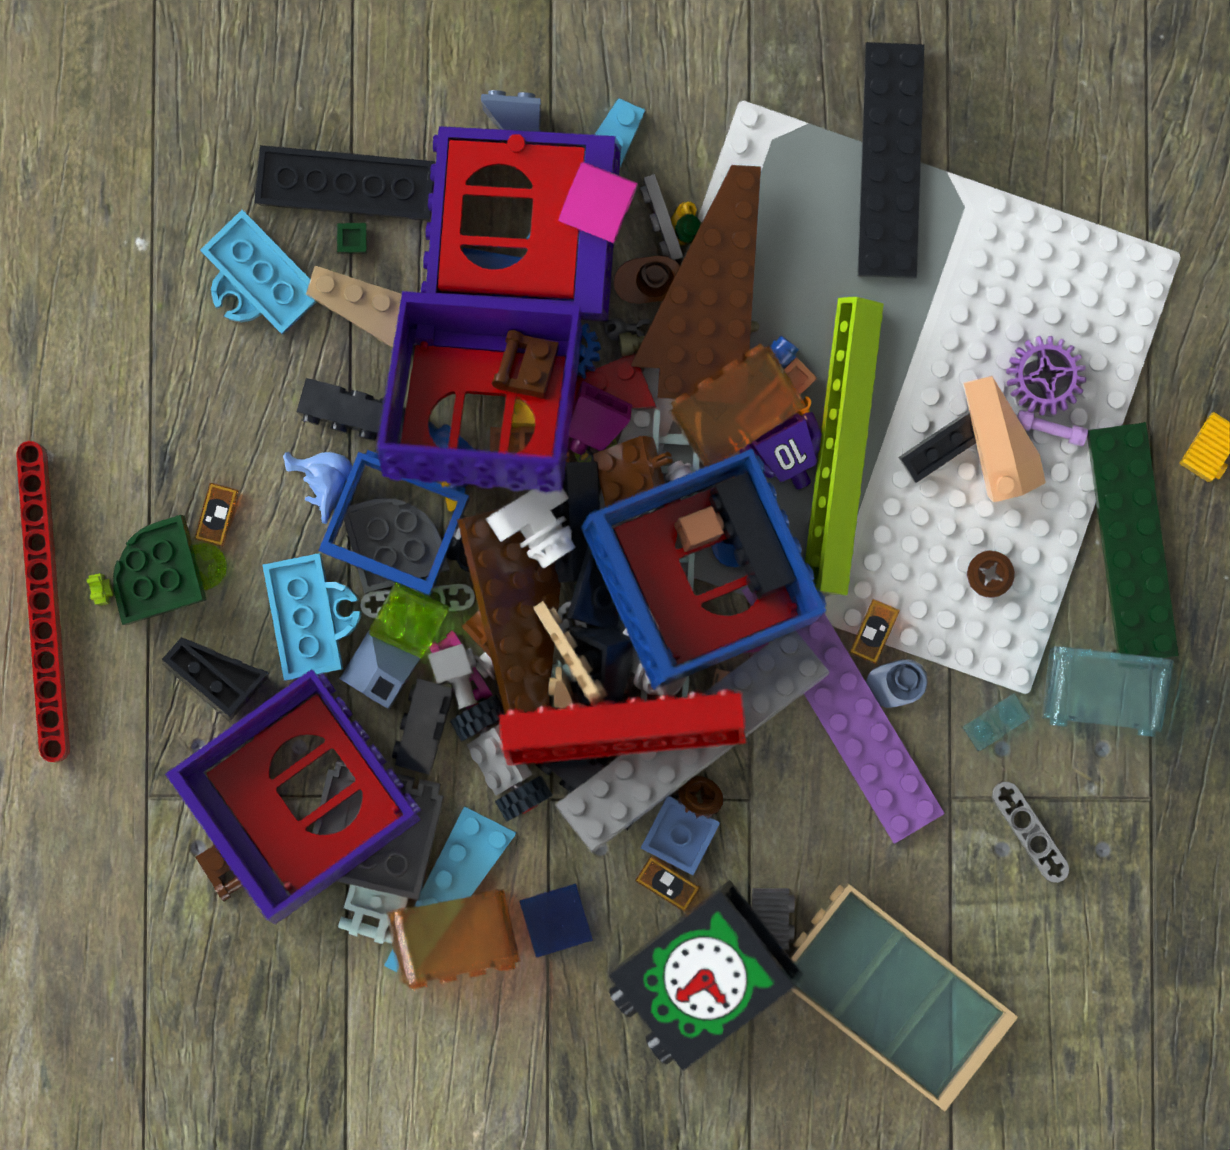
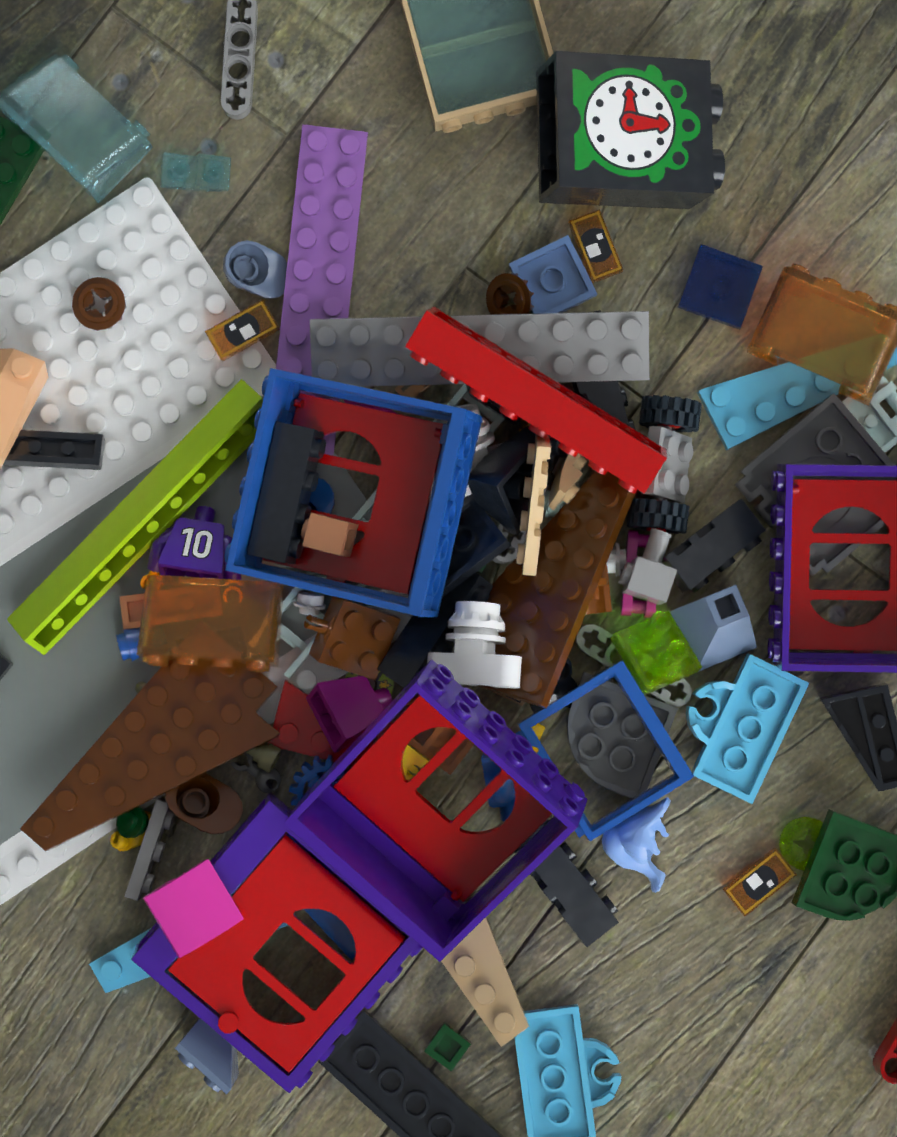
camera: 140 degrees left, 0 degrees up
(535, 367) = (369, 796): reddish brown plate -> none
(773, 909) = (519, 152): flat silver brick -> none

